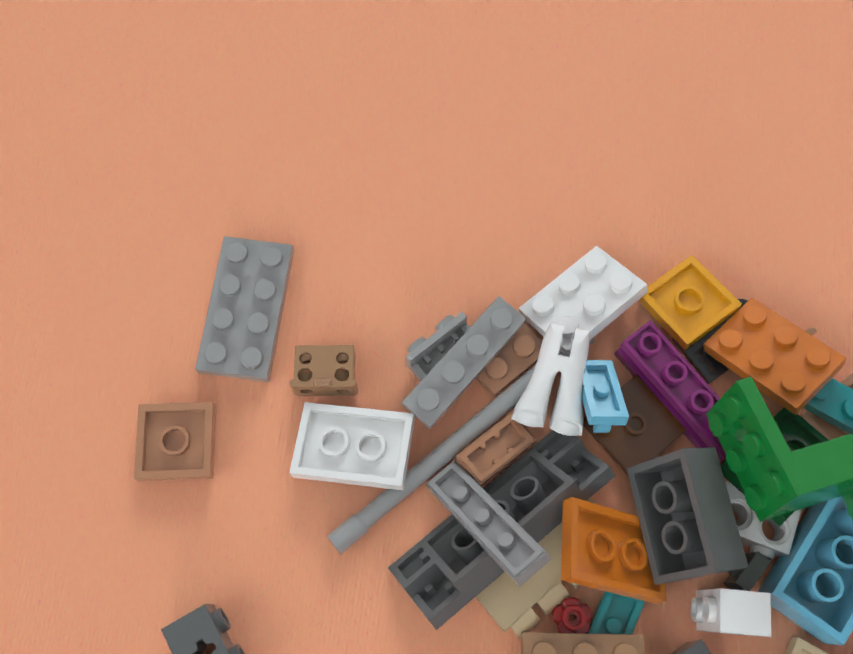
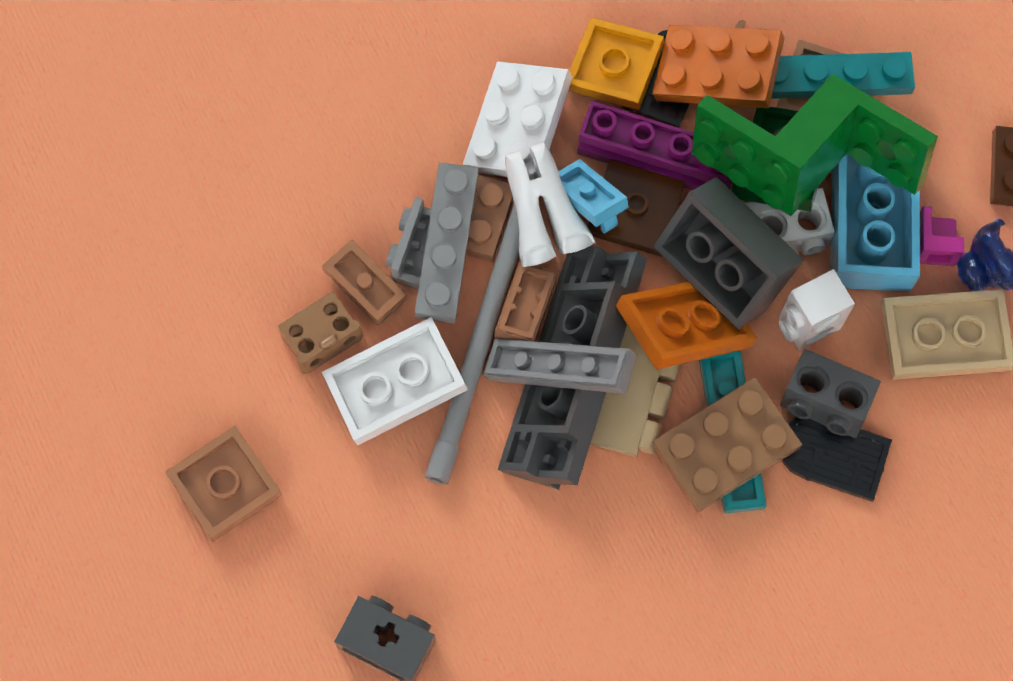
camera: 35 degrees left, 0 degrees up
(245, 309) = (200, 324): light grey plate -> none
(384, 353) = (364, 282): none -> nougat plate
(568, 607) = (679, 397): red plate -> none
(746, 578) = (811, 266): pearl dark grey plate -> none

